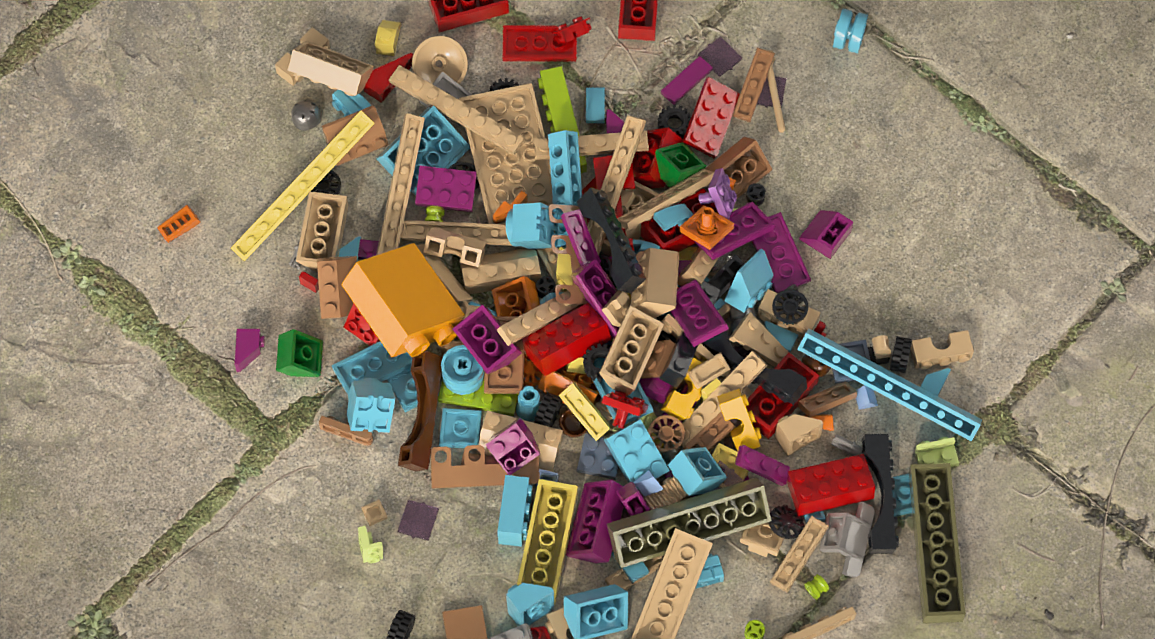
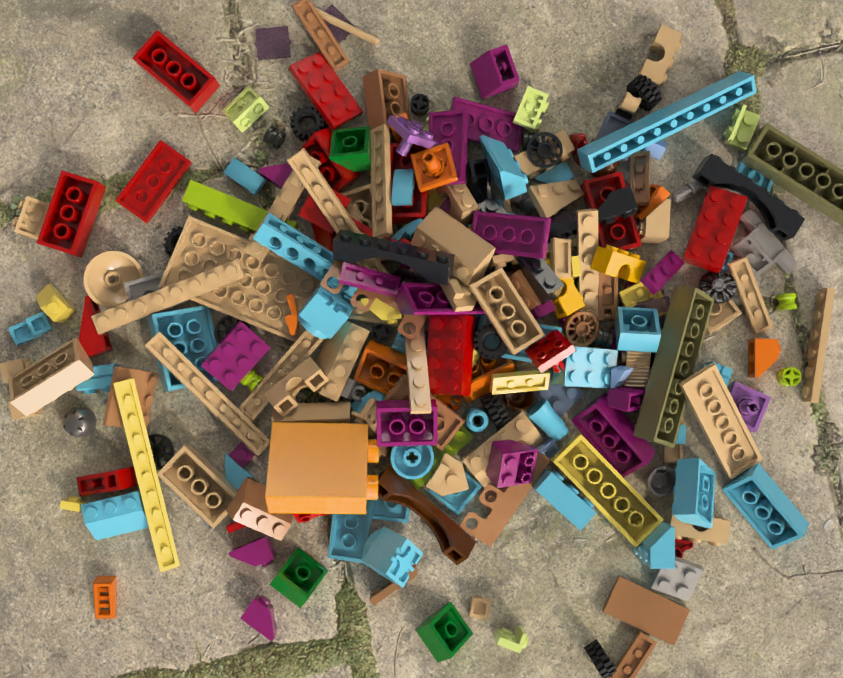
camera: 55 degrees left, 20 degrees up
(239, 152) = (72, 503): none -> light yellow plate
(251, 187) = (115, 515): none -> medium azure slope
(274, 163) = (107, 481): none -> red slope
(298, 309) = (255, 552): none -> magenta slope
(334, 495) = (444, 632): none -> green slope
(354, 33) = (30, 329): none -> medium azure slope
(418, 520) = (509, 575): piece -> none
(466, 411) = (448, 476): none -> tan plate
(482, 294) = (351, 389): none -> light grey tile
(570, 457) = (547, 419): none -> medium azure plant
(578, 26) = (159, 152): red hinge -> none
(586, 582) = (656, 479): none -> flat silver helmet
(643, 105) = (274, 137): none -> pearl dark grey wheel
(649, 71) = (245, 109): none -> yellowish green bracket
(686, 80) = (275, 85): magenta tile -> none
(700, 606) = (752, 409): none -> medium lavender plate
(756, 596) = (761, 355): none -> orange slope
(818, 279) = (530, 109): none -> yellowish green bracket
(934, 381) = (679, 84): medium azure tile -> none

